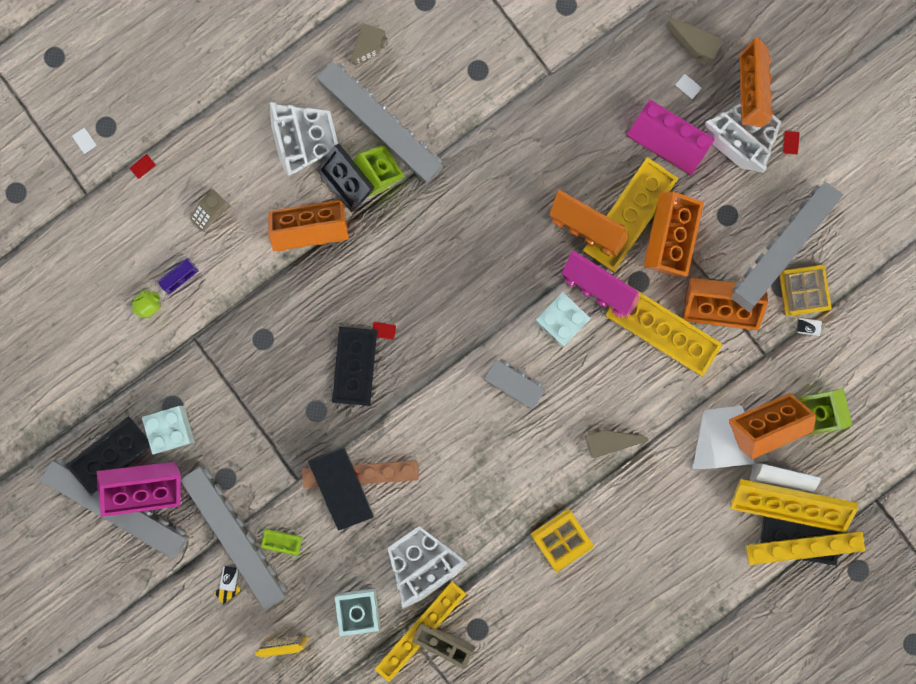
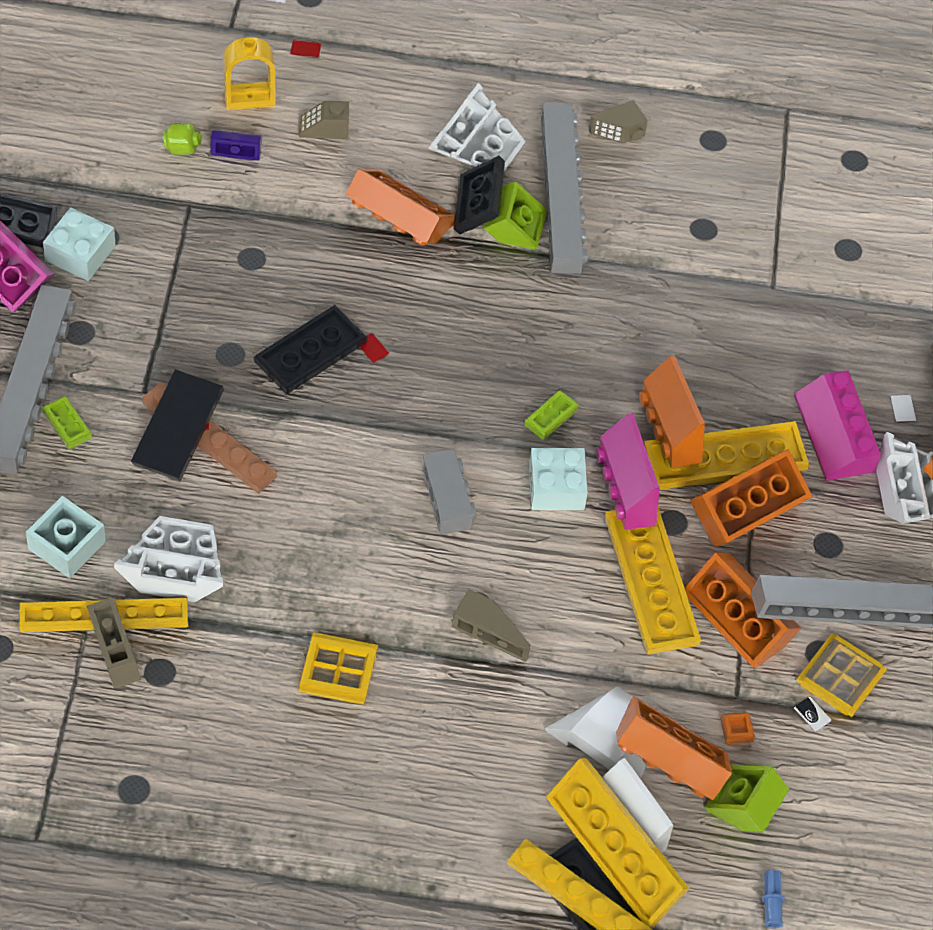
camera: 35 degrees right, 30 degrees down
(133, 228) = (261, 93): none -> yellow window
(519, 280) = (551, 415): none -> lime plate
(782, 373) = (737, 728): none -> orange tile
(886, 454) = (773, 899): none -> medium blue axle

